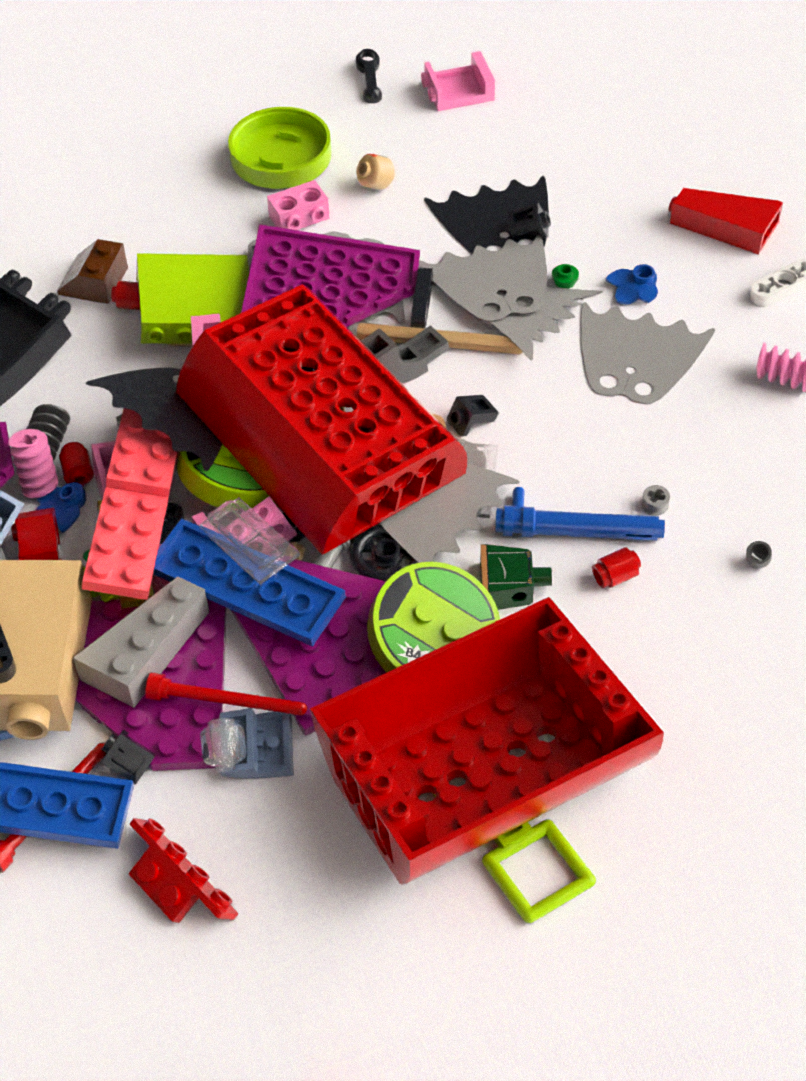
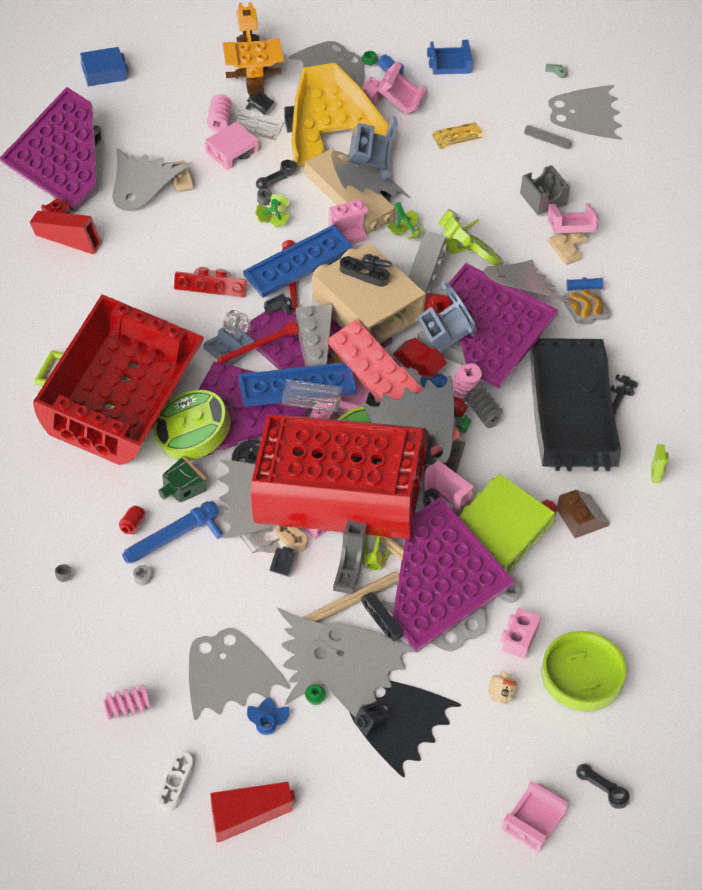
camera: 135 degrees right, 0 degrees up
(90, 430) = (463, 424): none -> green plate

